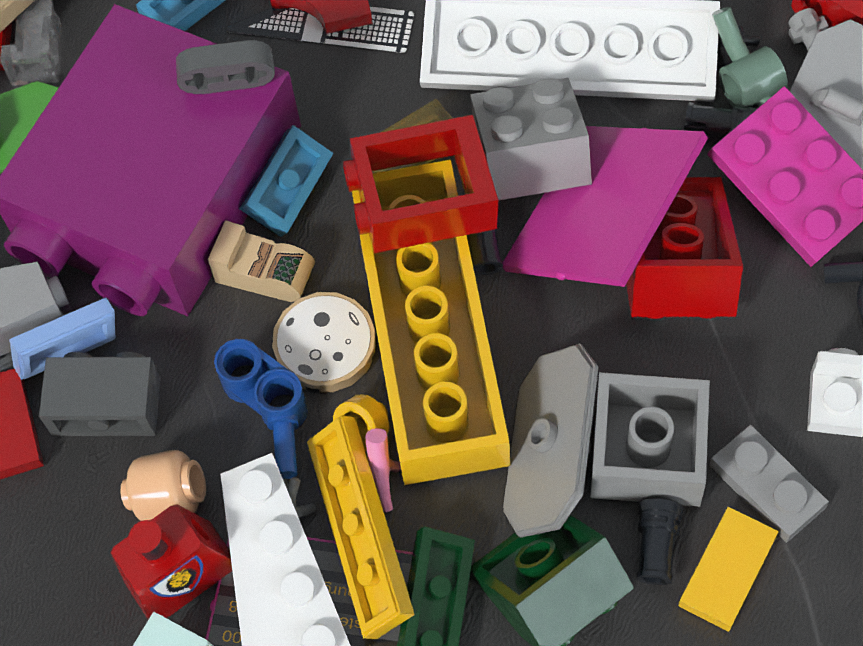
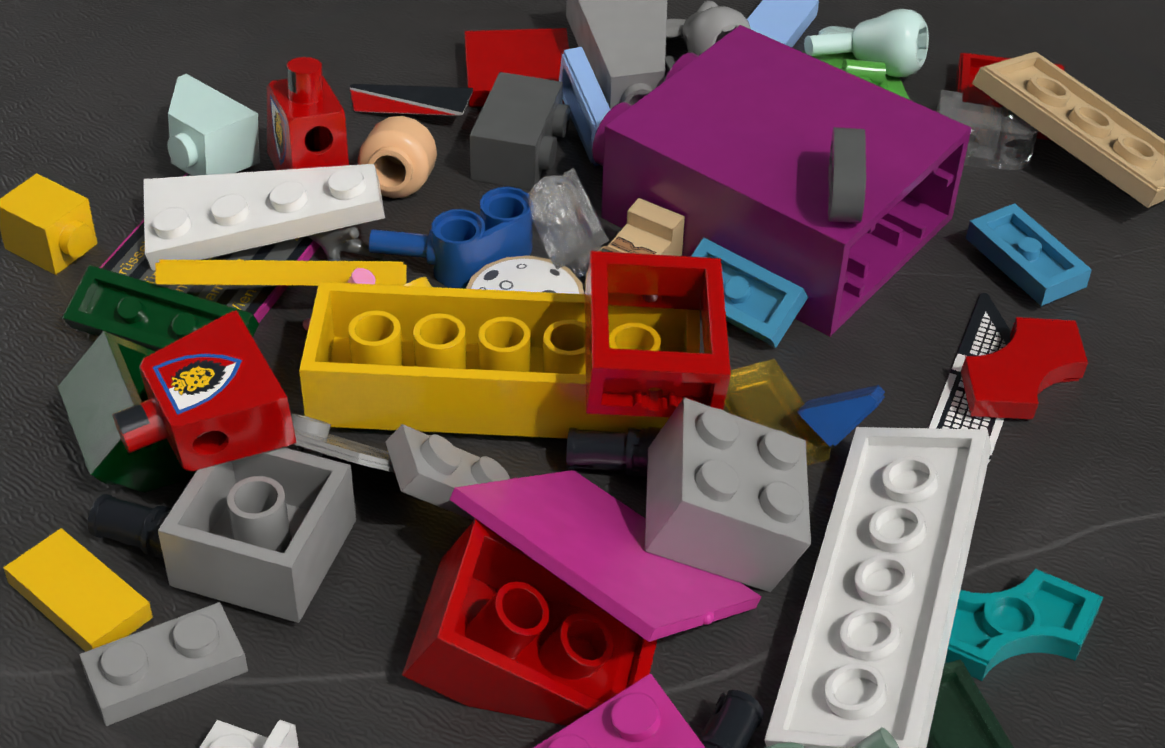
camera: 95 degrees right, 20 degrees down
(52, 517) = (410, 99): none -> sticker
(236, 315) = (566, 221): none -> clear hips
(412, 86) = (840, 413): none -> blue slope
(564, 320) = (432, 467): none -> light grey plate
(589, 471) = (209, 399): none -> red torso

